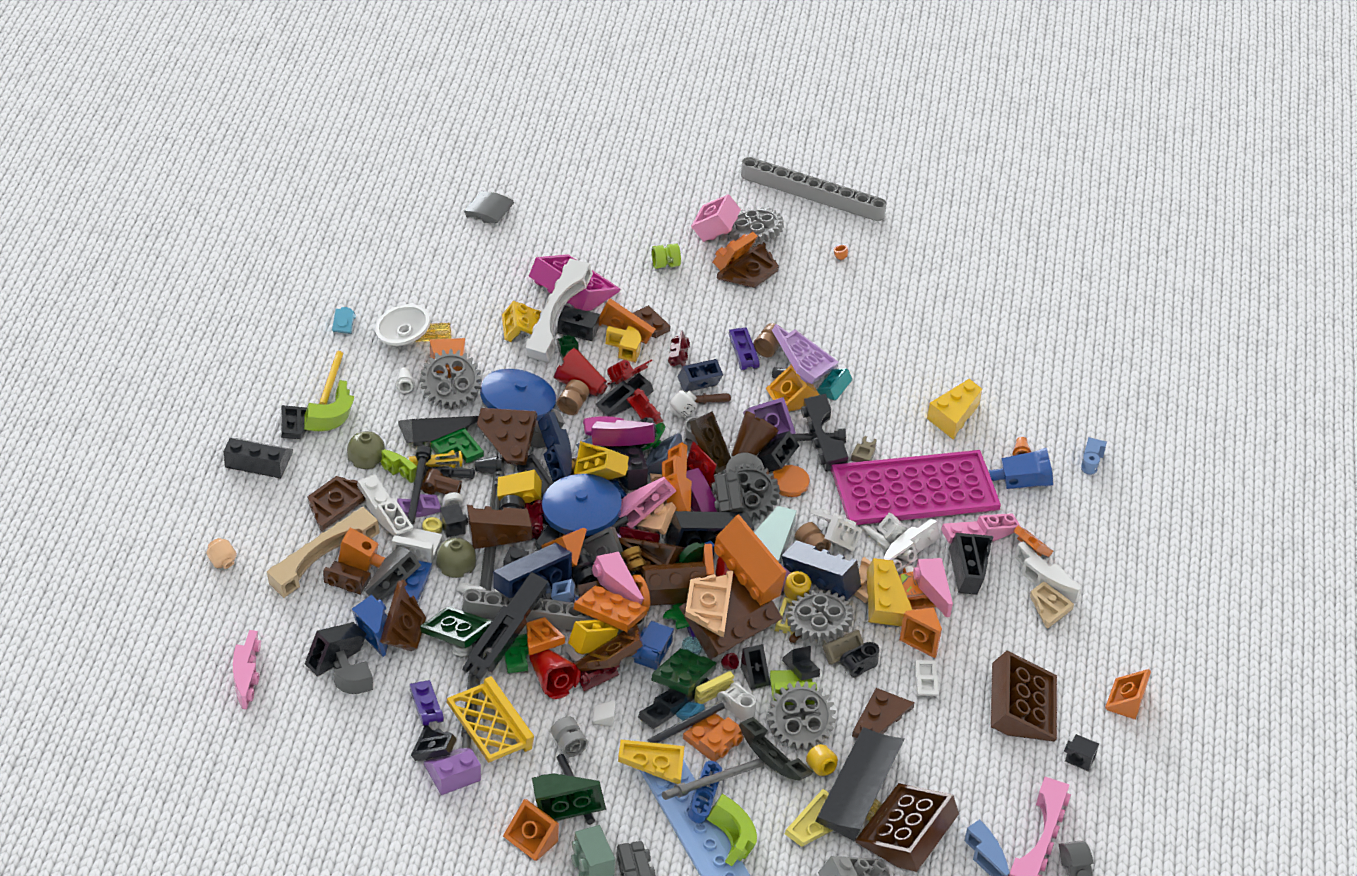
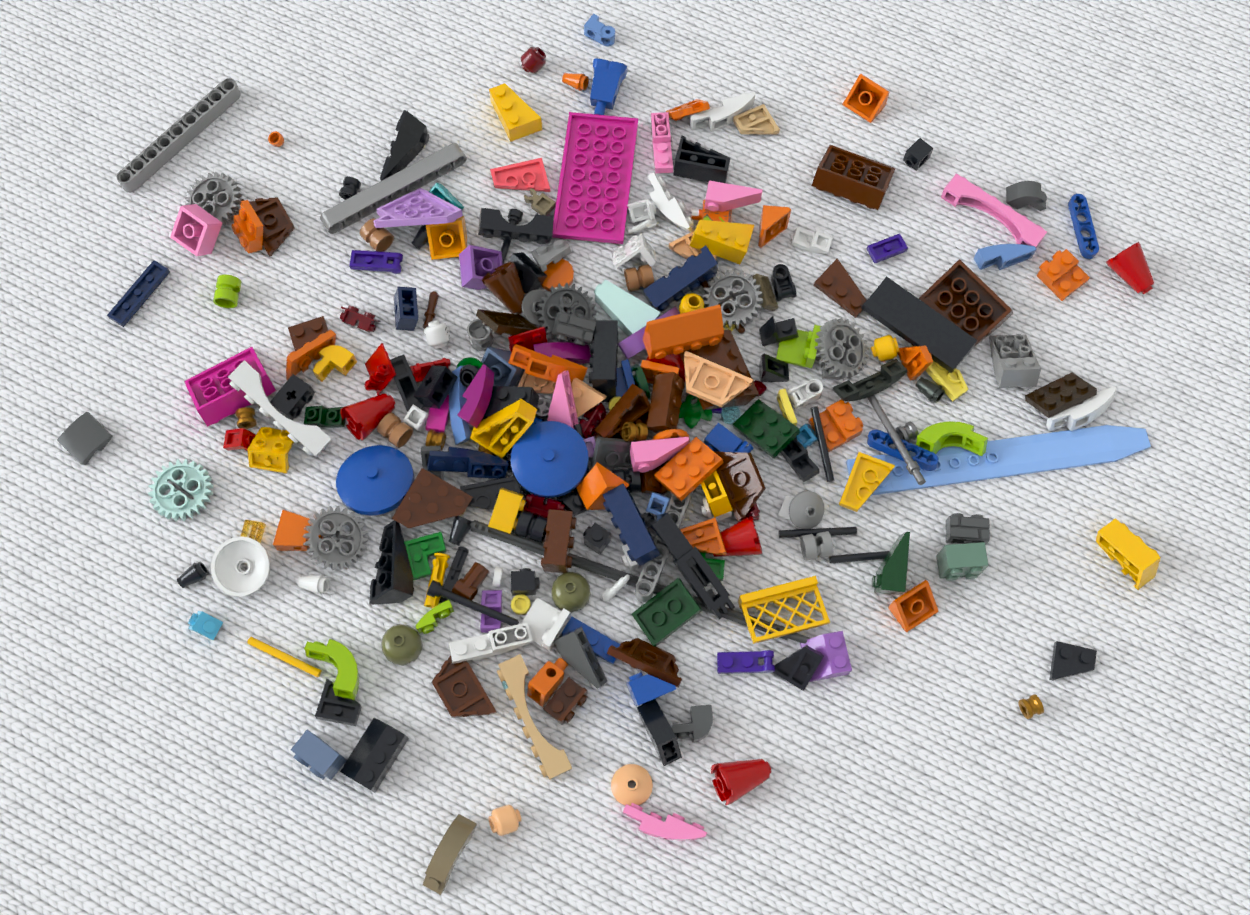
camera: 70 degrees left, 25 degrees up
(183, 514) = (447, 853): none -> dark tan arch
(246, 412) = (322, 758): none -> sand blue brick
(279, 644) = (635, 795): none -> light nougat dish
(305, 713) = (739, 778): none -> red cone
(386, 301) = (195, 573): none -> black cone
(452, 270) = (169, 503): none -> light aqua gear
(525, 297) = (238, 439): none -> red bracket
(542, 297) = (246, 418): none -> pearl gold wheel
(574, 428) = (436, 439): none -> pearl gold wheel
(589, 408) = (416, 418): none -> white slope
(590, 748) = (833, 531): none -> black bar
(615, 724) = (800, 506): none -> light grey dish
(624, 409) = (435, 386): none -> black brick
(640, 204) = (138, 293): none -> dark blue plate
(727, 789) = (907, 432): none -> flat silver wheel
(789, 810) = (931, 390): none -> pearl dark grey cone
(809, 468) = (554, 252): none -> light grey wing
(812, 312) = (350, 187): none -> black wheel
(814, 784) = (915, 360): none -> orange wing
(837, 346) = (392, 188): none -> light grey beam
(879, 336) = (408, 144): none -> black wedge
(889, 432) = (521, 176): none -> coral wing
(947, 744) = (887, 248): none -> dark purple plate
(1026, 409) = (533, 60): none -> dark red head

